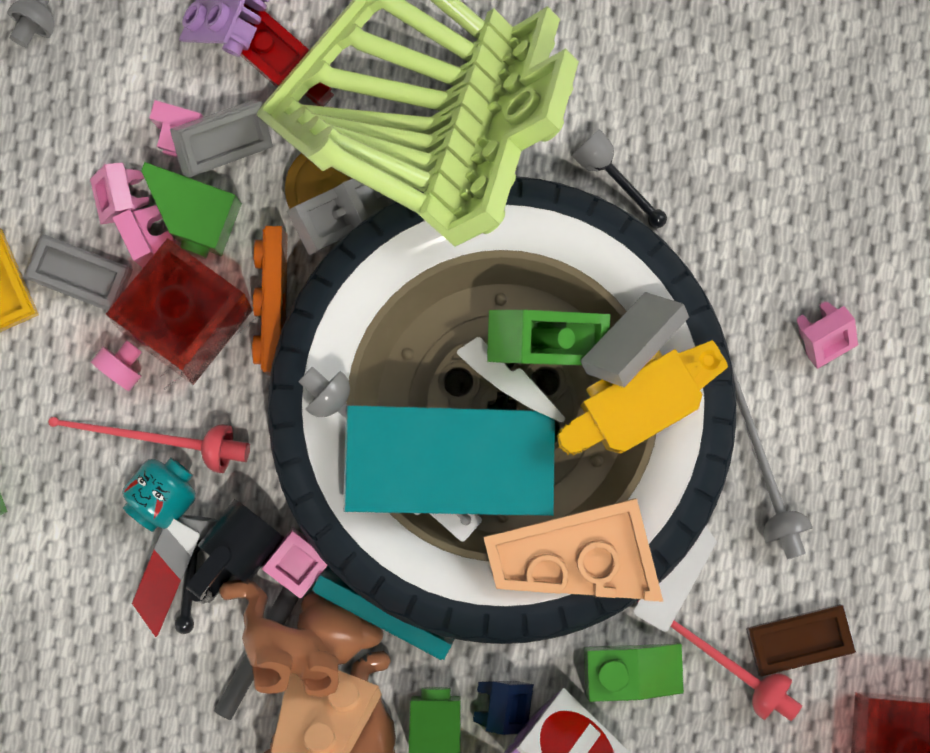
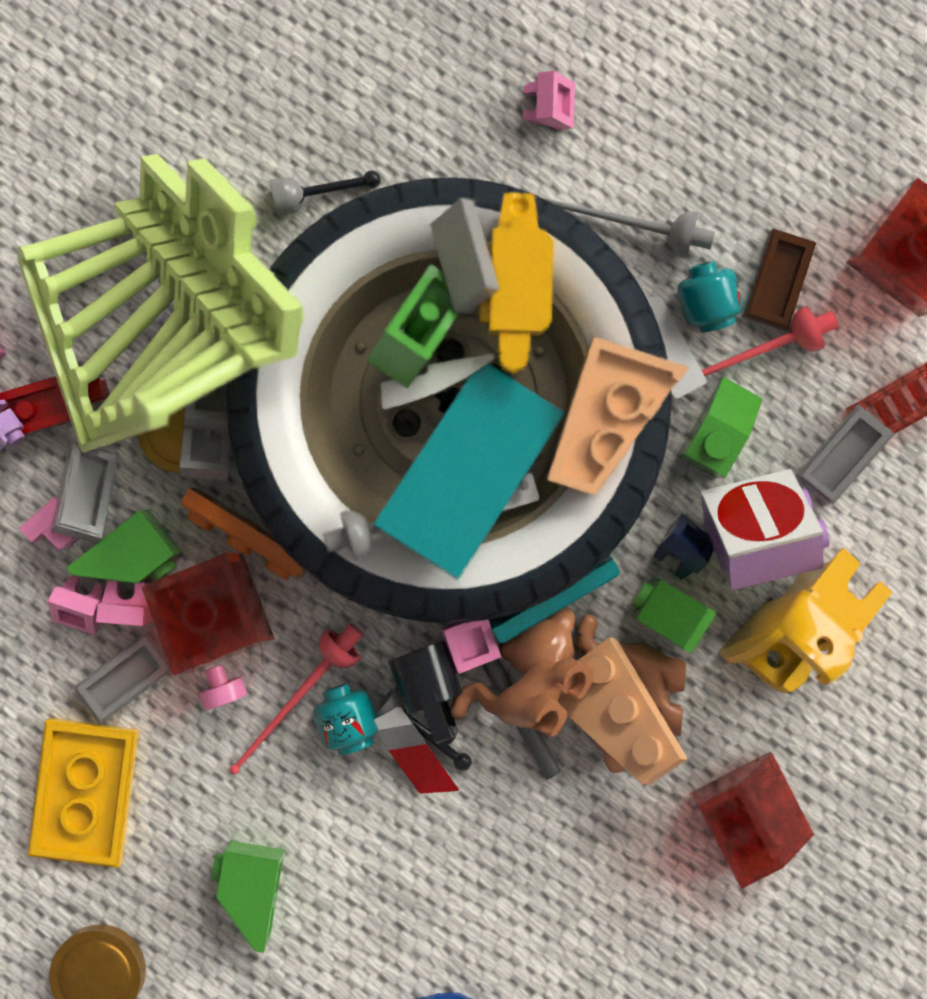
camera: 55 degrees left, 5 degrees up
(744, 586) = (710, 297): none -> teal head

